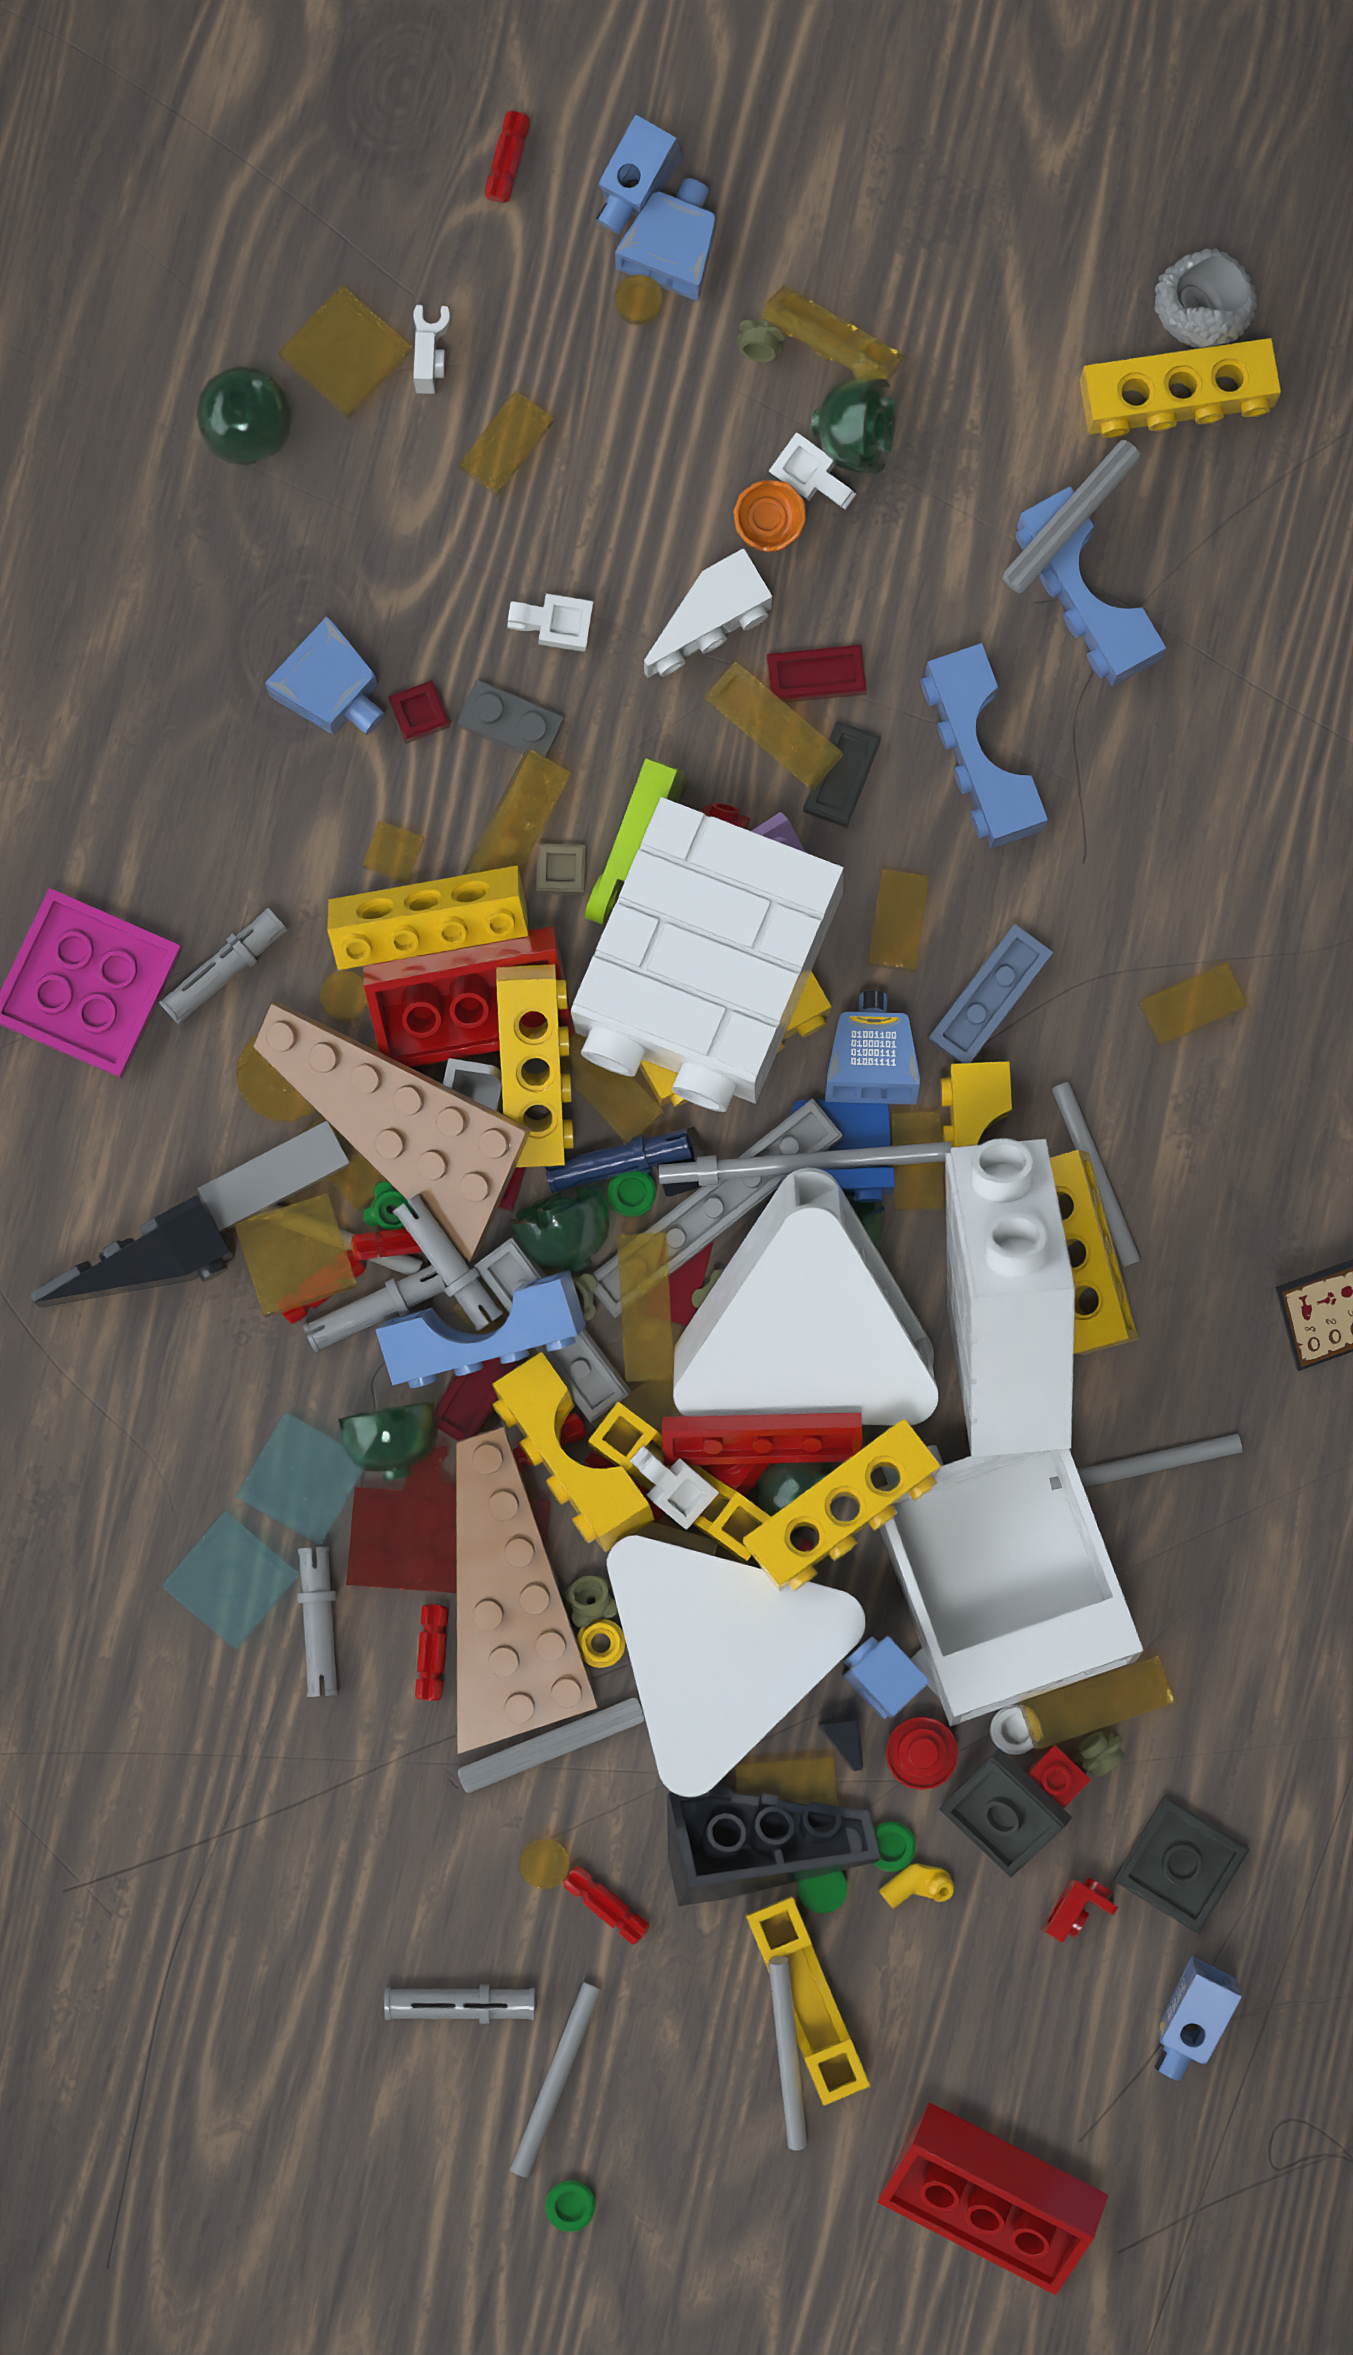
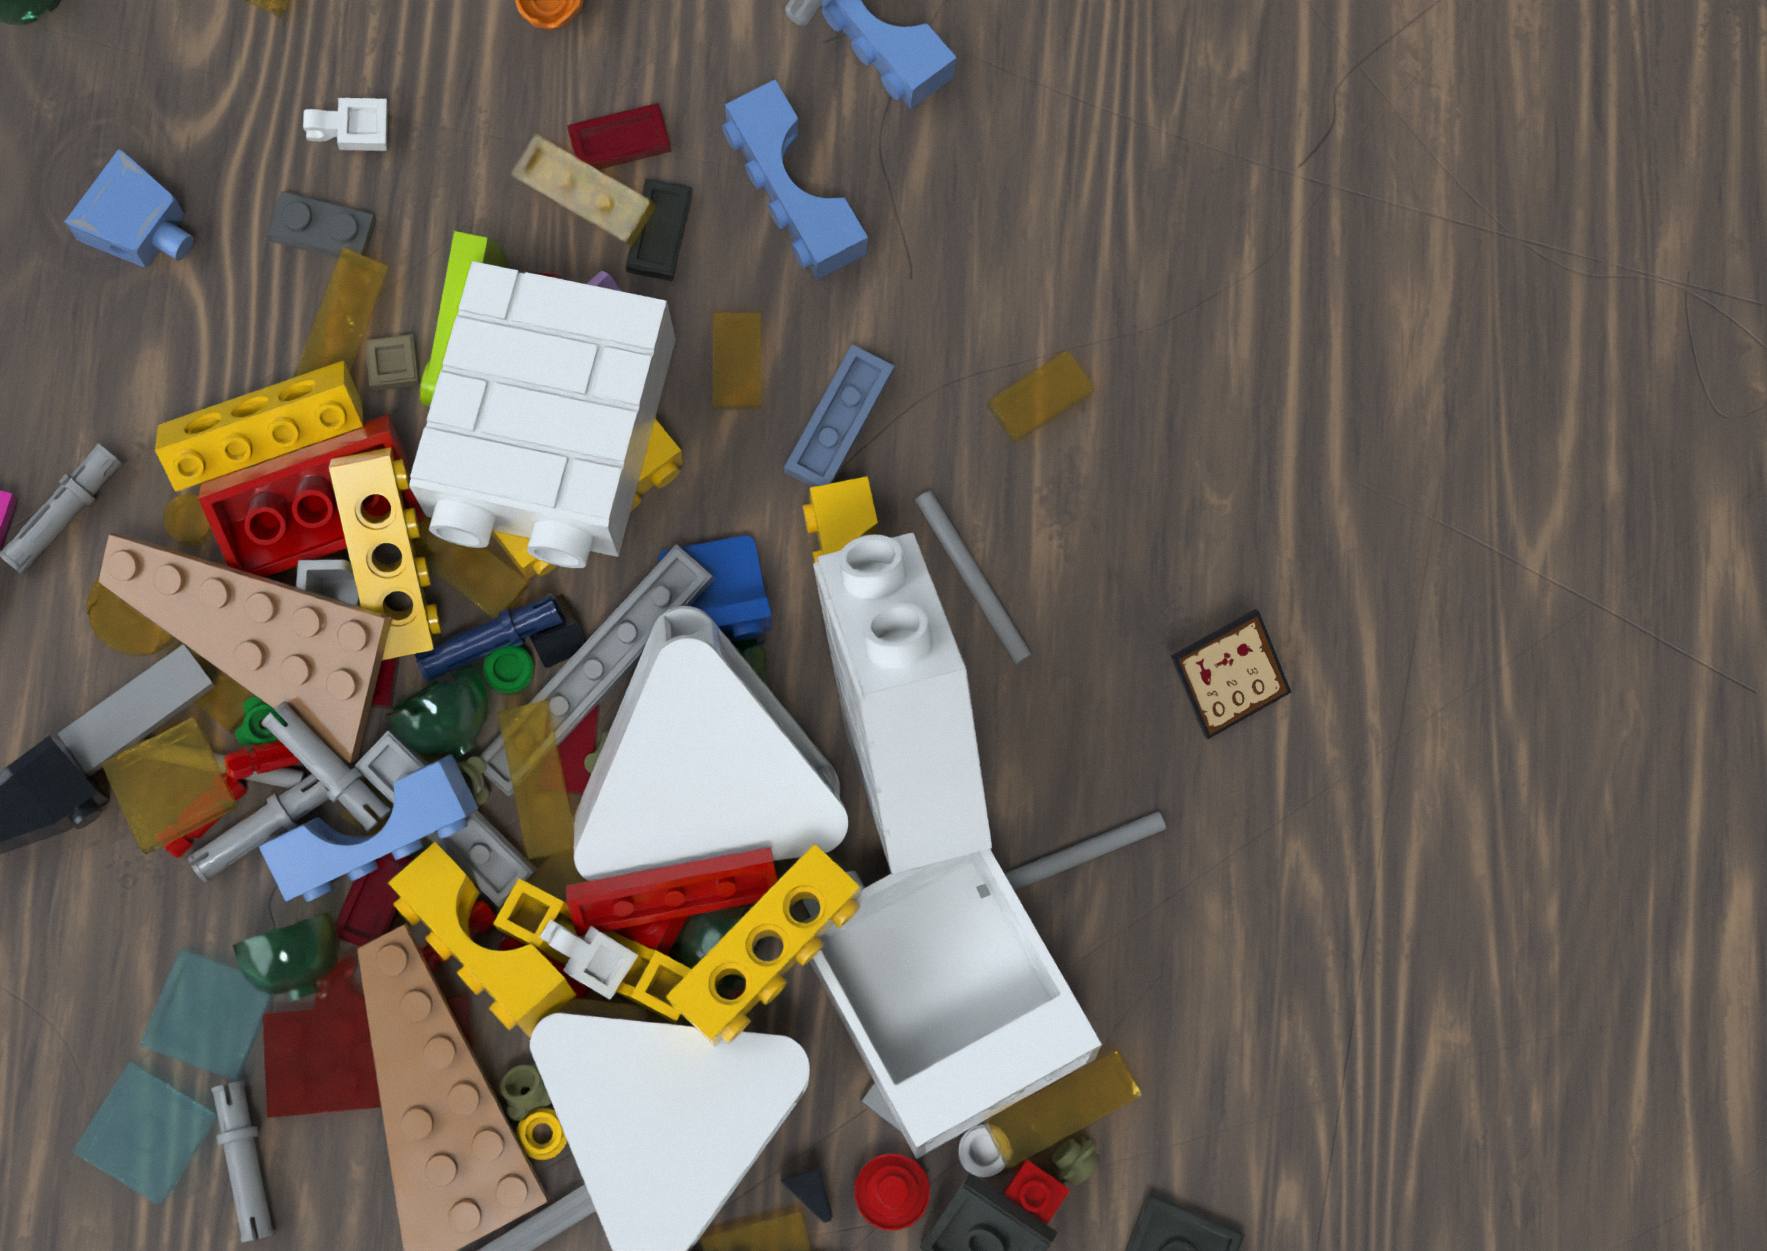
camera: 15 degrees left, 5 degrees down
(393, 852) = (220, 371): clear yellow tile -> none
(419, 712) = (228, 232): dark red tile -> none
(431, 1652) = (367, 1173): red axle -> none
(709, 1169) = (582, 631): light grey bar -> none
(718, 603) = (508, 86): white slope -> none
(873, 1056) = (730, 494): medium blue torso -> none
(883, 1676) = (836, 1115): medium blue arch -> none
(921, 1184) = (792, 592): clear yellow tile -> none
(1112, 1320) = (1013, 716): yellow brick -> none

